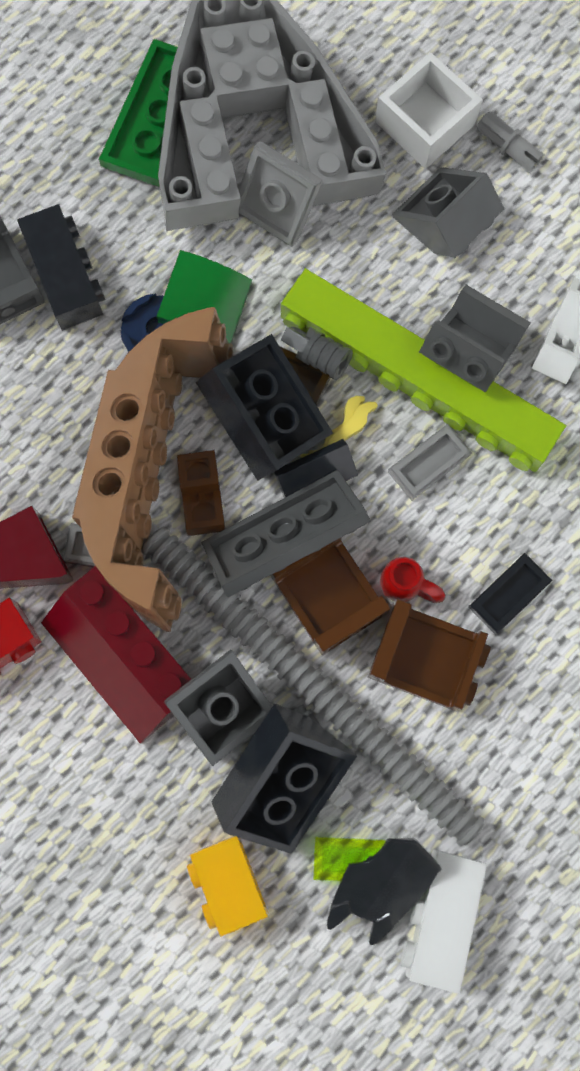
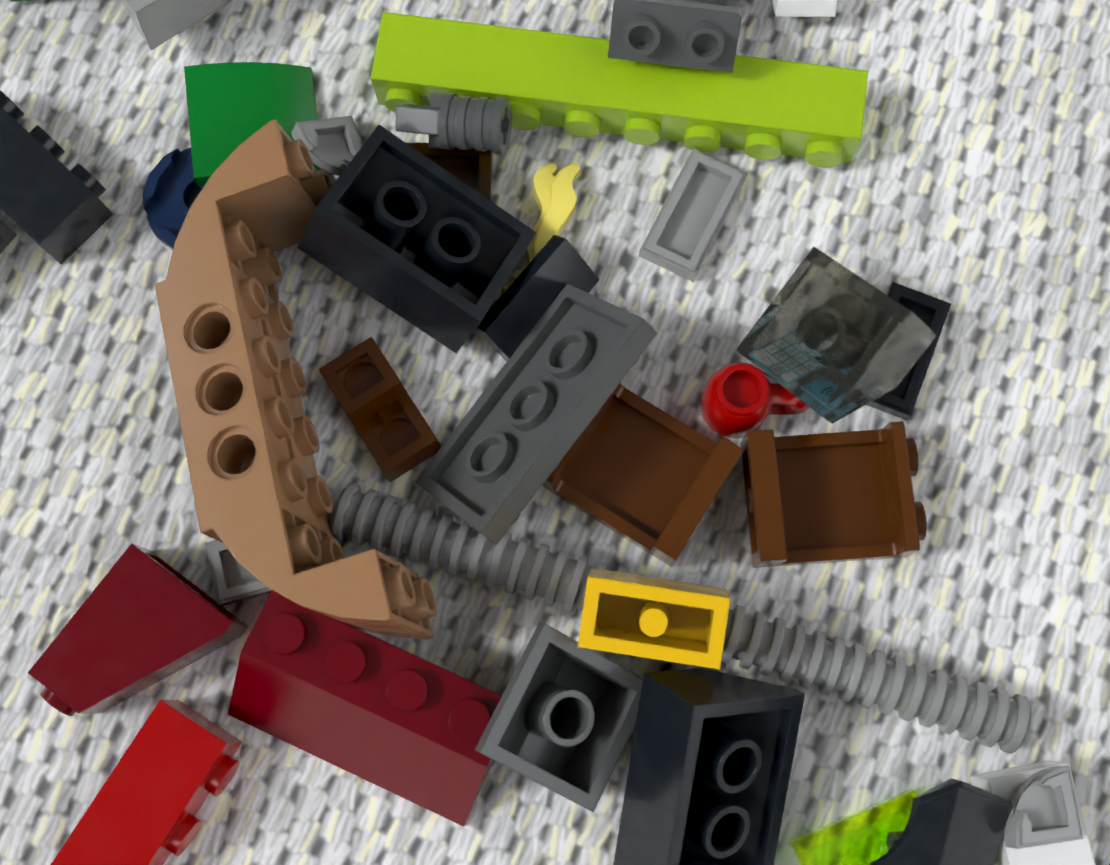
camera: 20 degrees left, 0 degrees up
(242, 328) = (330, 141): none -> light grey tile
(293, 676) = (654, 618): none -> yellow brick
(458, 881) = (1043, 810): none -> light grey tile
(471, 570) = (835, 338): none -> clear smoke slope

